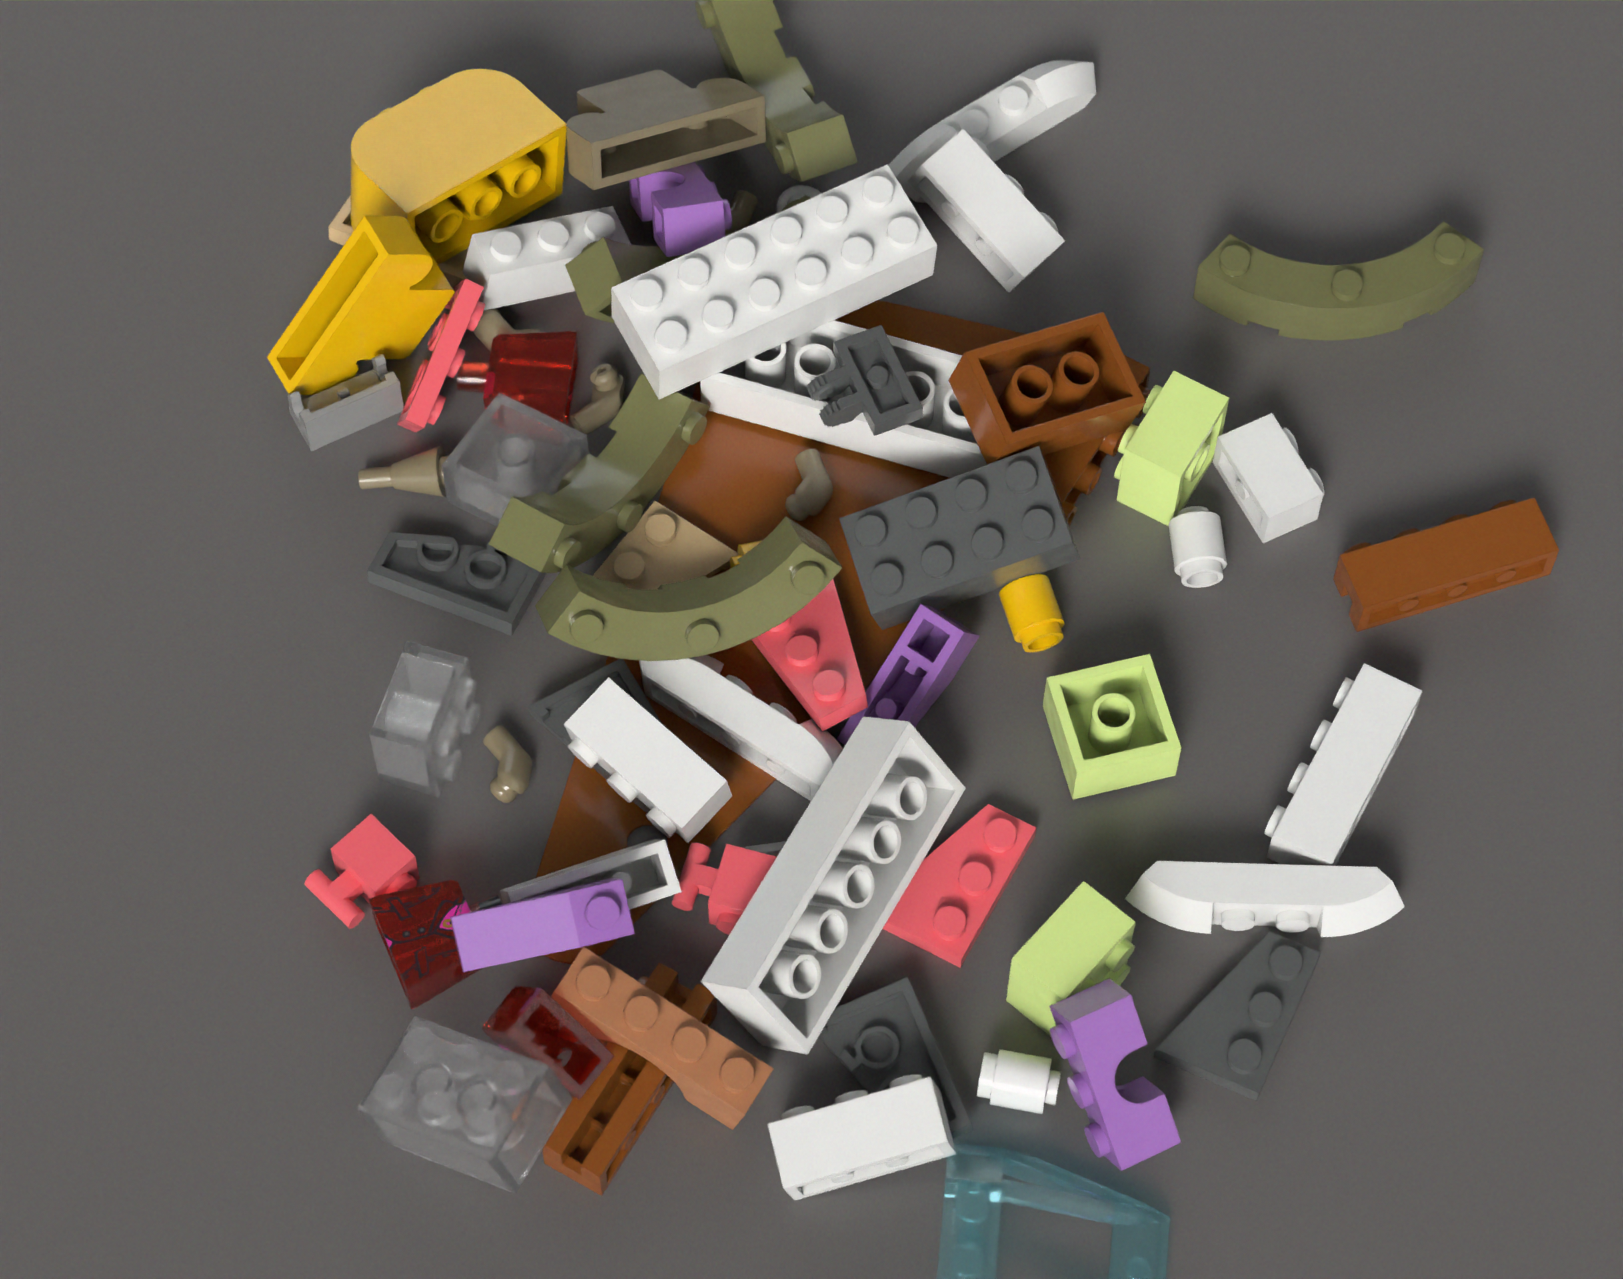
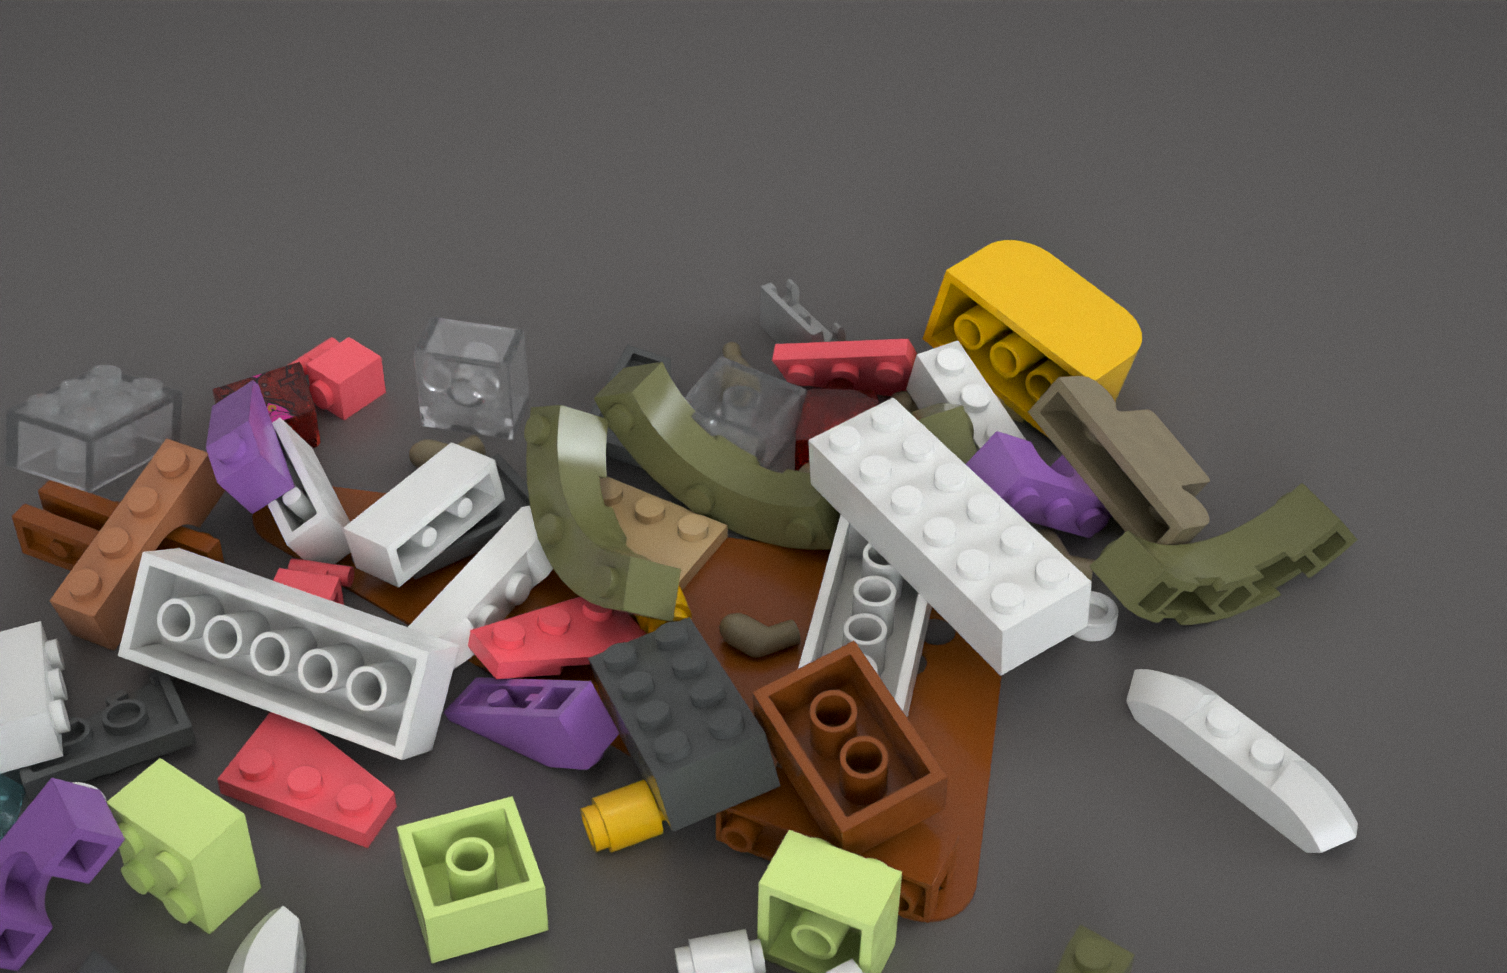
camera: 85 degrees right, 20 degrees down
(368, 303) = (877, 288): yellow brick -> none
(540, 1029) = (127, 450): clear red torso -> none
(876, 380) = (850, 615): dark grey hinge -> none
(986, 209) = (1111, 735): white brick -> none

